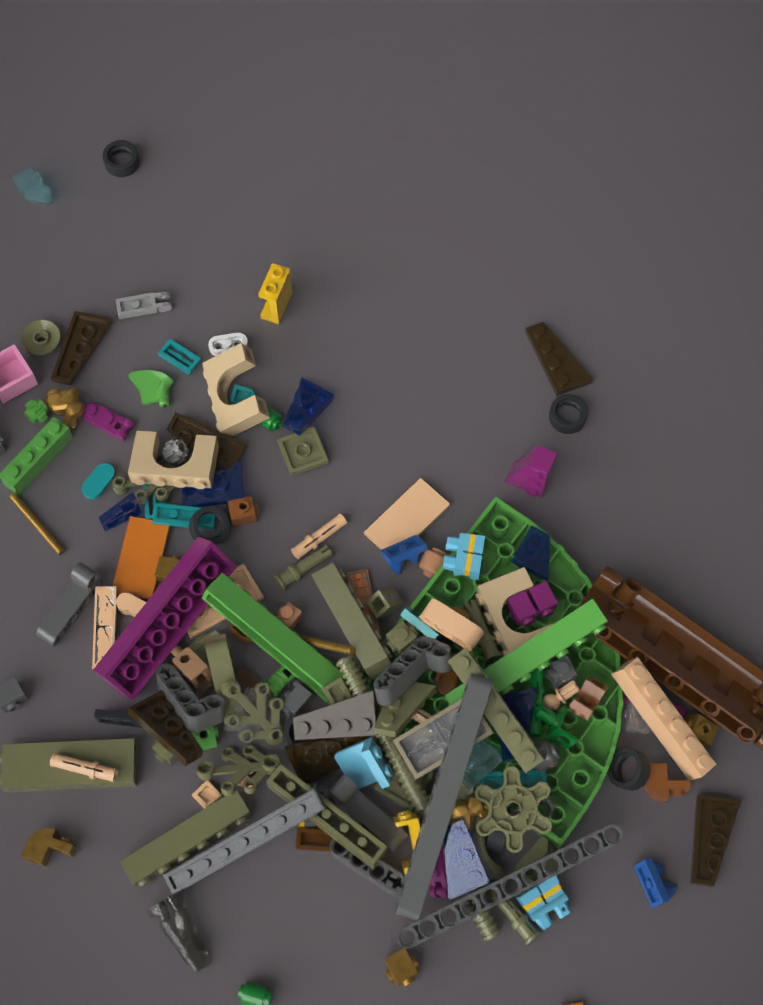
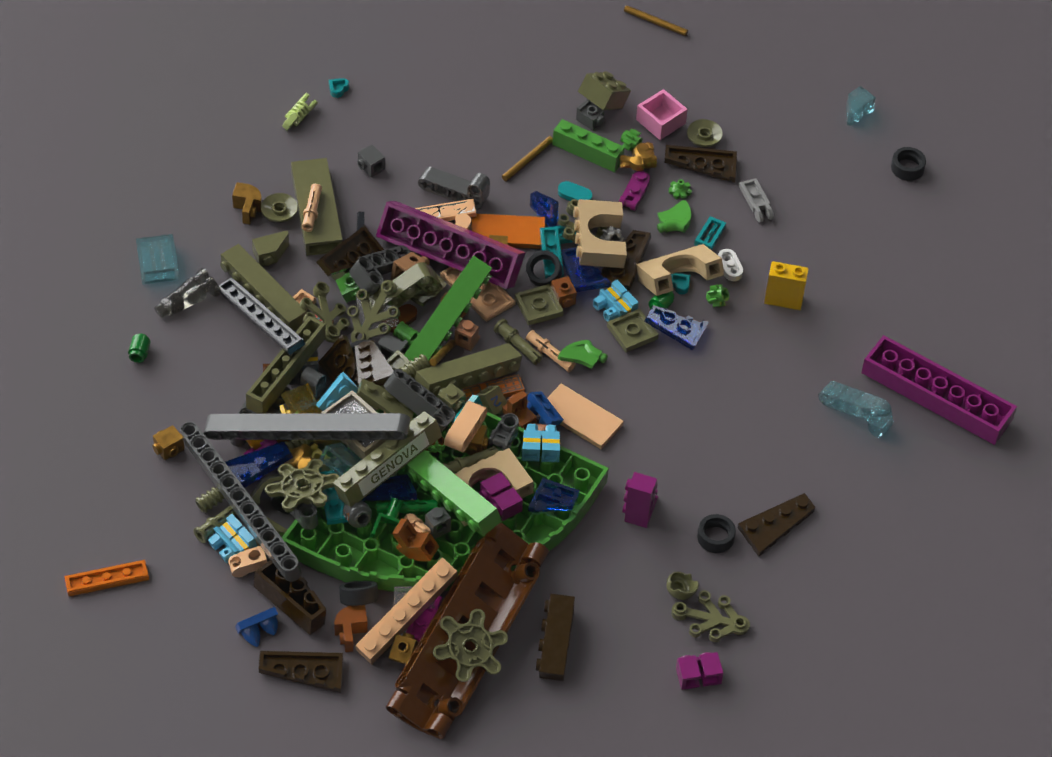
camera: 80 degrees right, 15 degrees down
(54, 804) = (279, 207): none -> olive dish
(112, 376) = (680, 189): none -> bright green plant
(118, 964) = (157, 259): none -> clear light blue brick
(126, 826) = (270, 247): none -> olive slope
(253, 539) = (539, 304): none -> olive plate
(263, 461) = (615, 301): none -> medium azure hips
(270, 362) = (717, 295): none -> bright green gear
(329, 504) = (582, 353): none -> bright green arm
(381, 803) = (301, 400): none -> clear yellow slope
(407, 577) = (518, 405): none -> dark orange brick
(418, 189) = (939, 389): none -> magenta brick
(426, 263) = (859, 404): none -> clear light blue beam
(450, 590) = (504, 435): none -> dark grey piece
(575, 887) = (247, 561): none -> light nougat leg
(631, 453) = (681, 585): none -> olive hair
(638, 832) = (291, 597): none -> dark brown wedge
(666, 432) = (712, 618): none -> olive plant
(688, 577) = (556, 637): none -> dark brown wedge
(724, 649) = (476, 633): none -> olive plate
(728, 460) = (704, 667): none -> magenta piece

